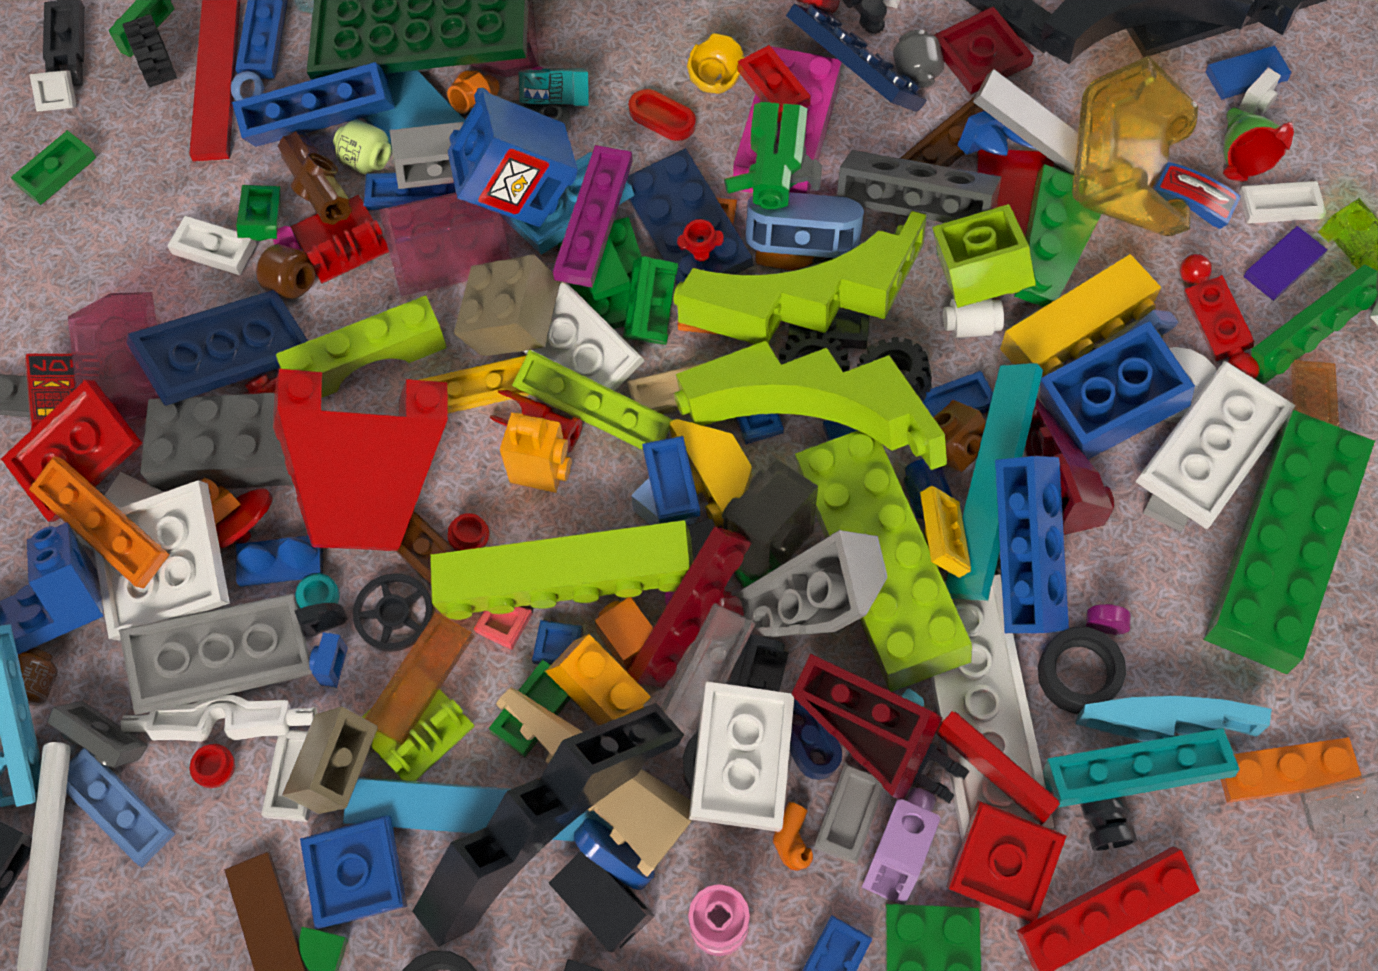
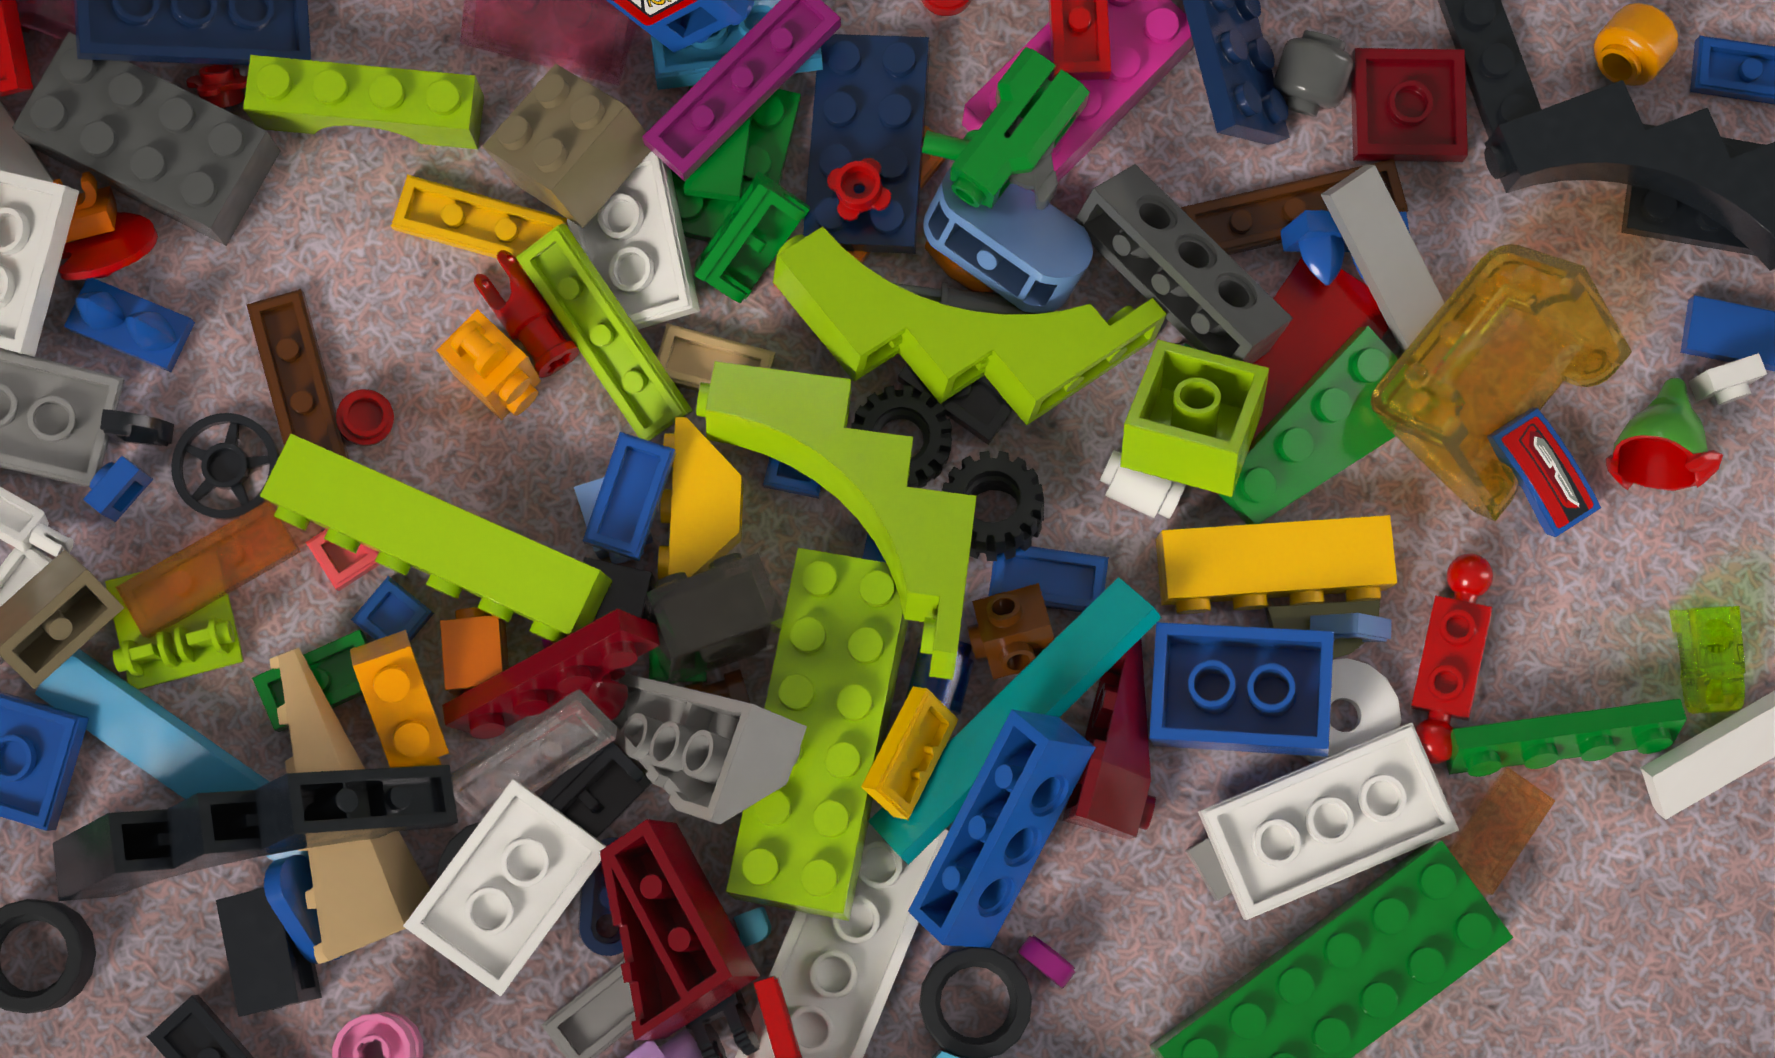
camera: 20 degrees right, 15 degrees up
(317, 589) = (151, 392): teal tile -> none
(357, 470) = (261, 279): red wedge -> none
(789, 841) = (516, 1005): orange arm -> none
(1282, 202) = (1651, 544): white tile -> none
(1285, 263) = (1593, 630): dark purple tile -> none

